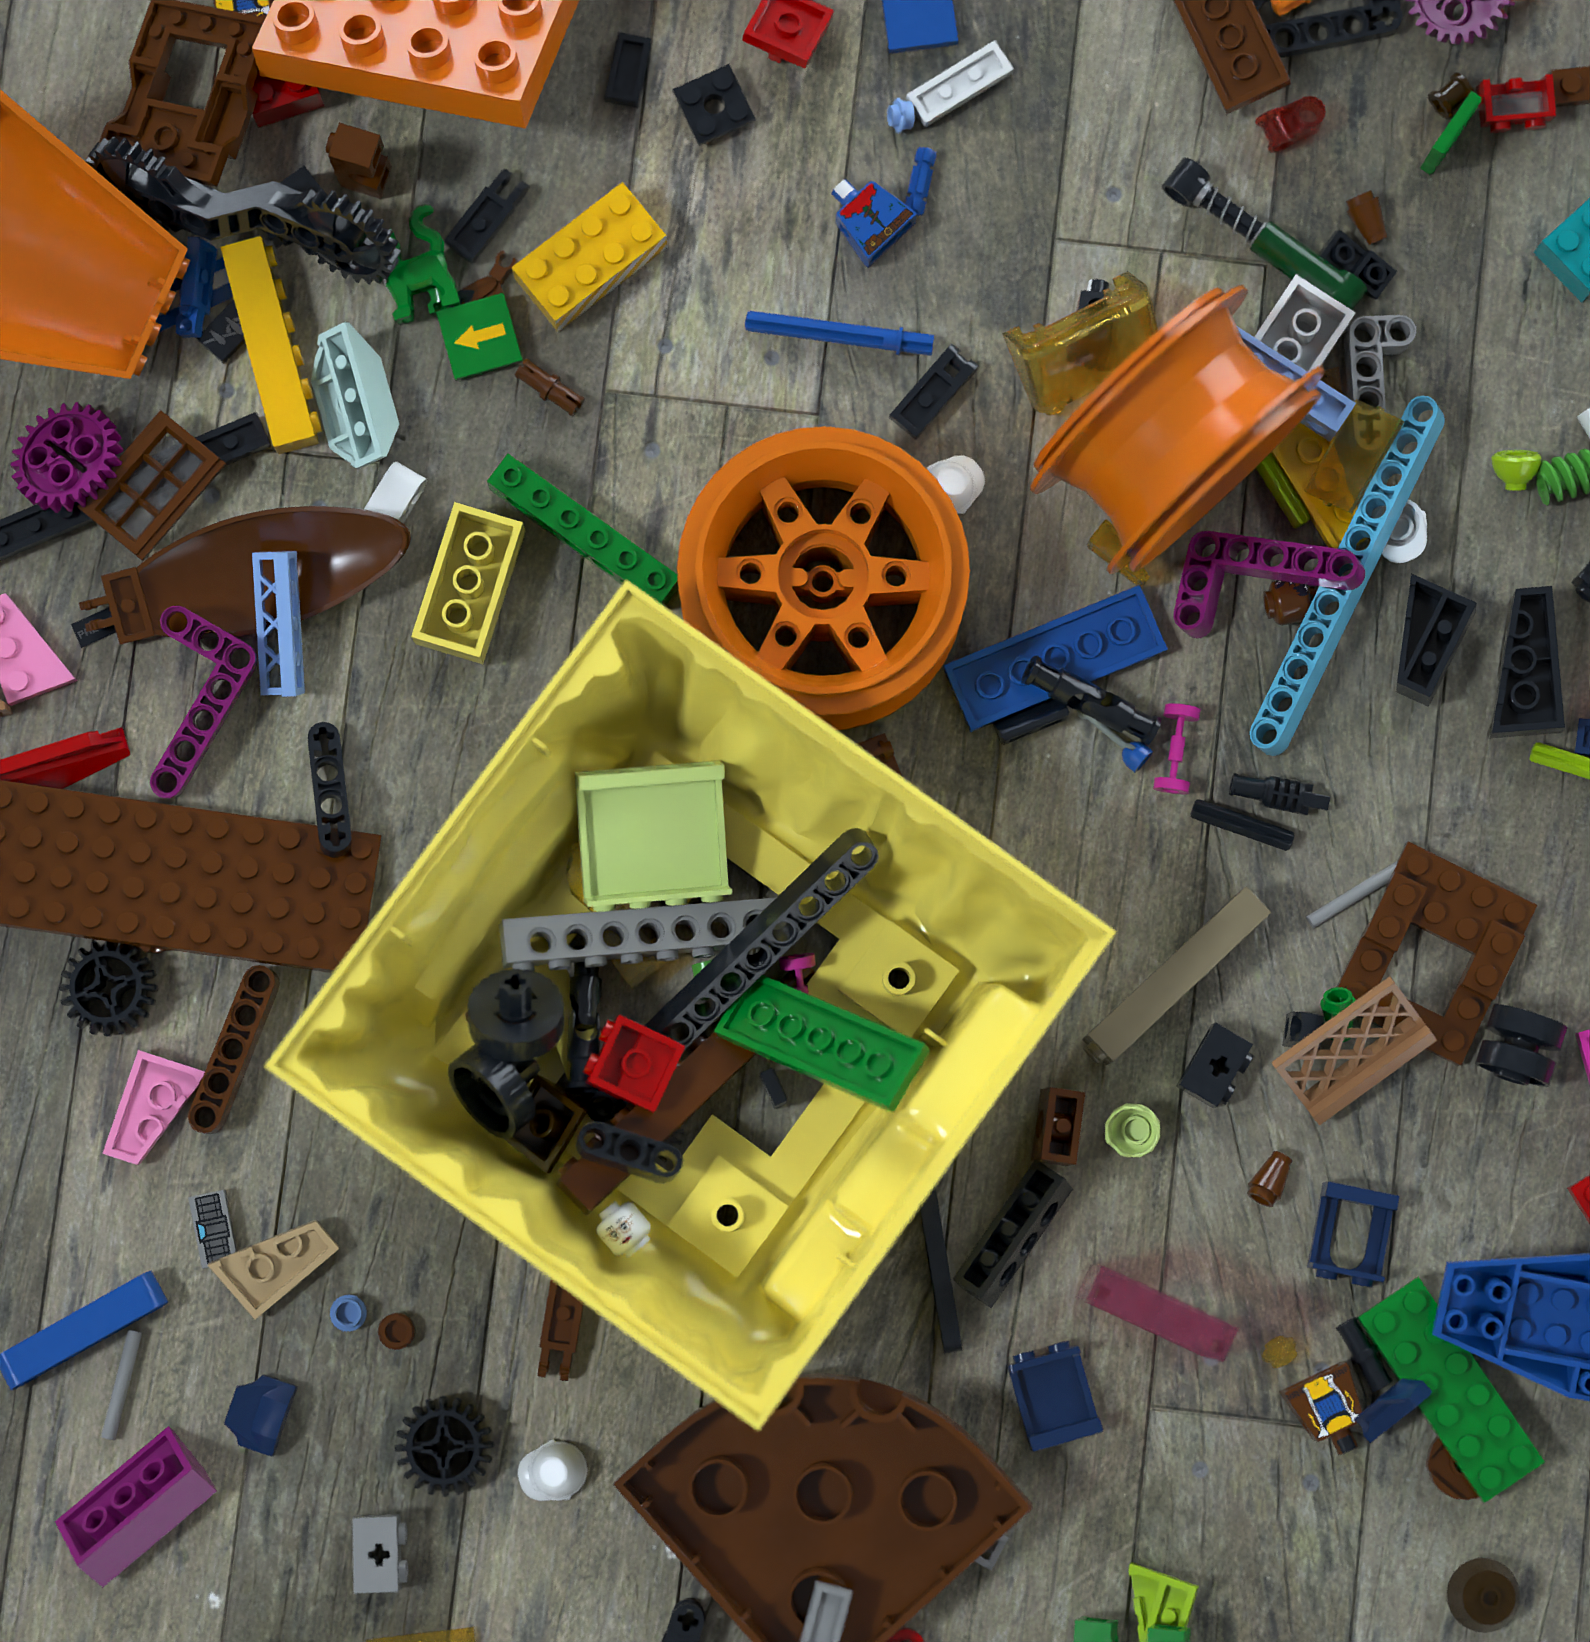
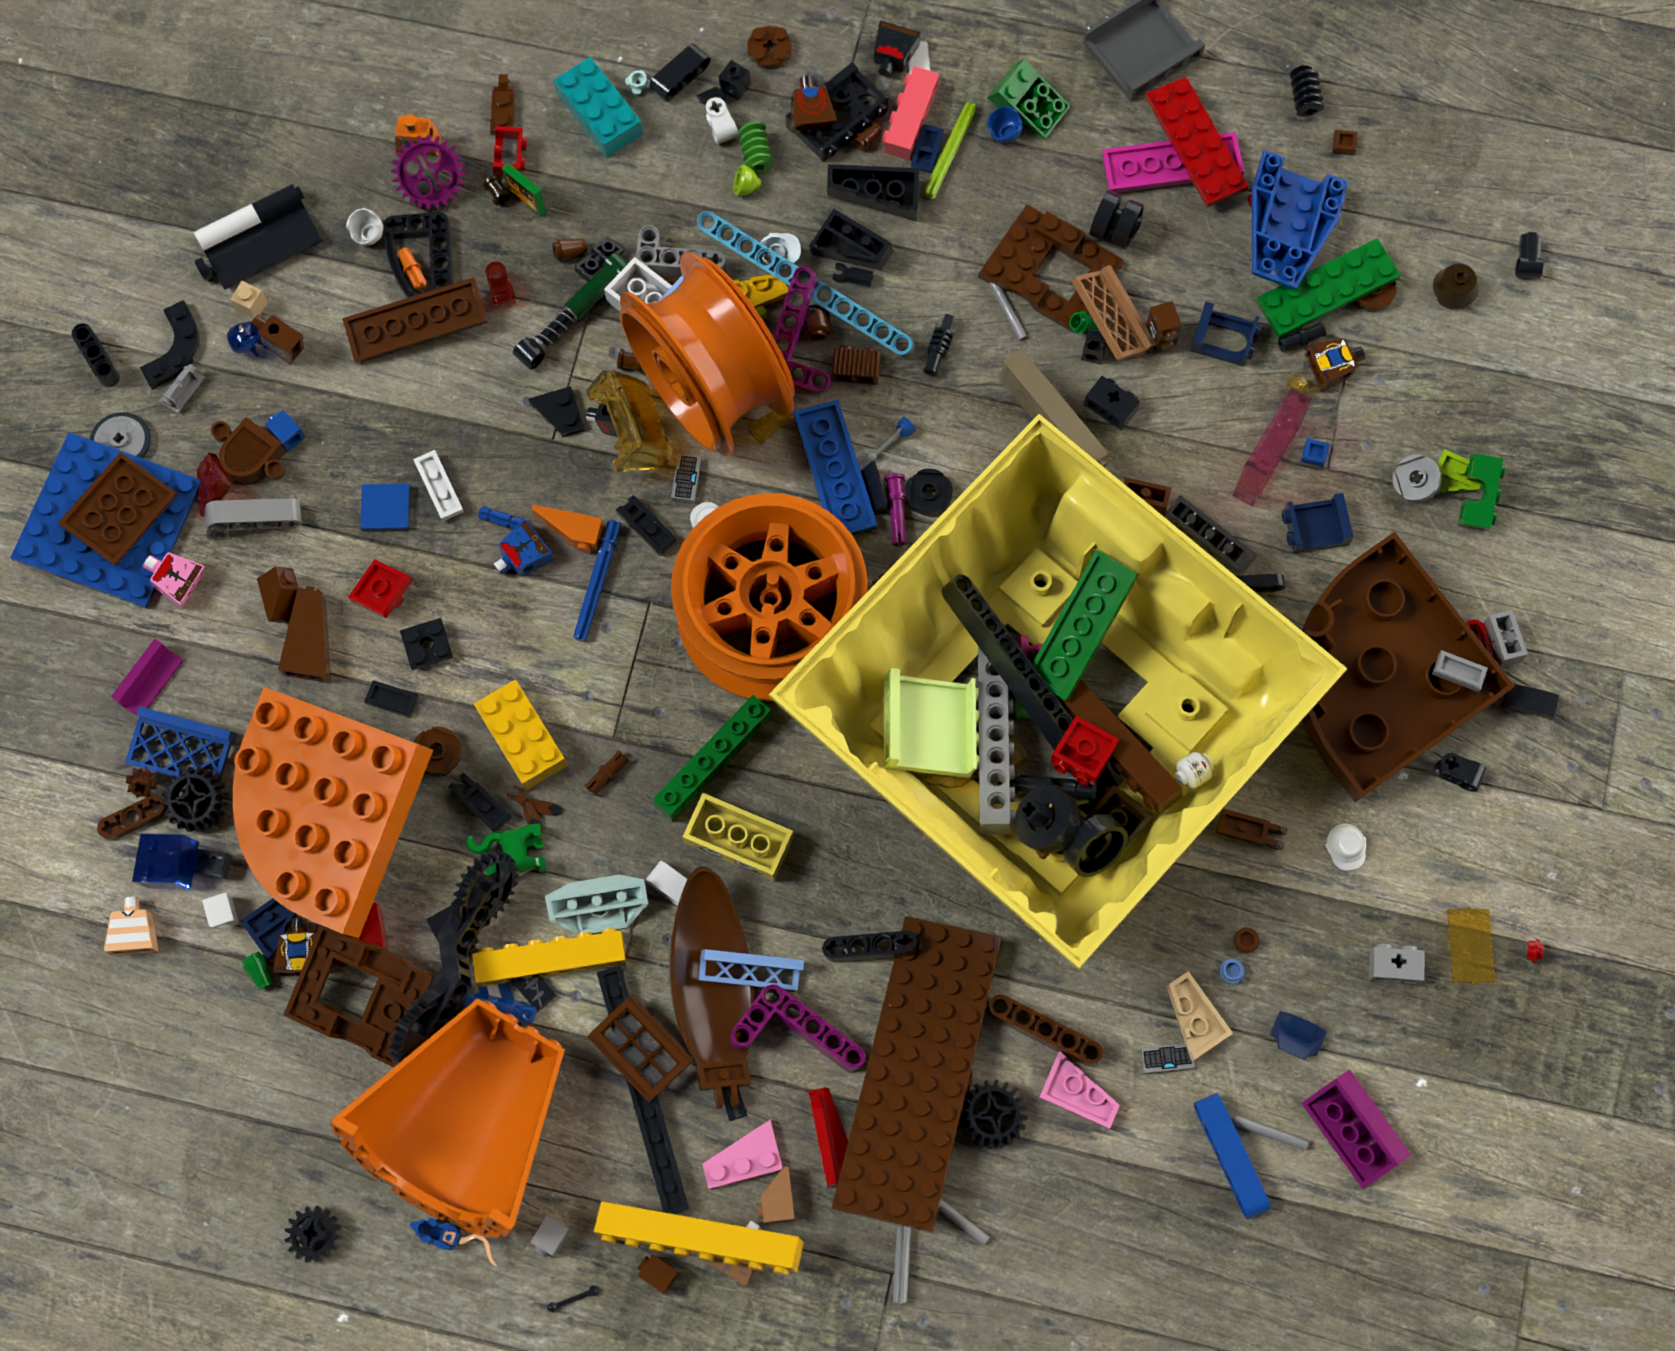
camera: 80 degrees left, 10 degrees down
(49, 477) = (596, 1091): magenta gear -> none
(358, 160) = (430, 877): reddish brown arch -> none
(444, 1464) = (1316, 913): black gear -> none
(479, 336) = (564, 815): green tile -> none
(565, 162) = (450, 746): none -> reddish brown plate
(647, 1149) = (1141, 767): black beam -> none
(773, 1088) = (1104, 672): black tile -> none
(901, 115) = (454, 524): light blue plate -> none
(914, 287) = (575, 528): none -> orange slope
(1013, 440) = (686, 478): none -> tile
(1019, 754) = (896, 498): none -> magenta pin
(1022, 817) = (928, 505): none -> black plate
(1096, 702) = (867, 447): black piece -> none
(1102, 242) = (559, 410): none -> black wing
(1132, 1130) = (1149, 455): yellowish green hair -> none
(1142, 1568) = (1424, 467): none -> light grey plate
(1174, 1387) = (1315, 452): none -> blue tile
(1180, 713) = (904, 402): dark pink wheel -> none
(1228, 670) = (856, 365): none -> reddish brown brick
(1242, 825) = (956, 370): black axle -> none
(1270, 1180) = (1187, 379): reddish brown cone -> none
(1347, 1133) = (1164, 326): none -> reddish brown brick
(1354, 456) = (737, 267): clear yellow piece -> none
(1380, 652) = (853, 275): none -> black bar
(1392, 1407) = (1337, 319): dark blue slope -> none

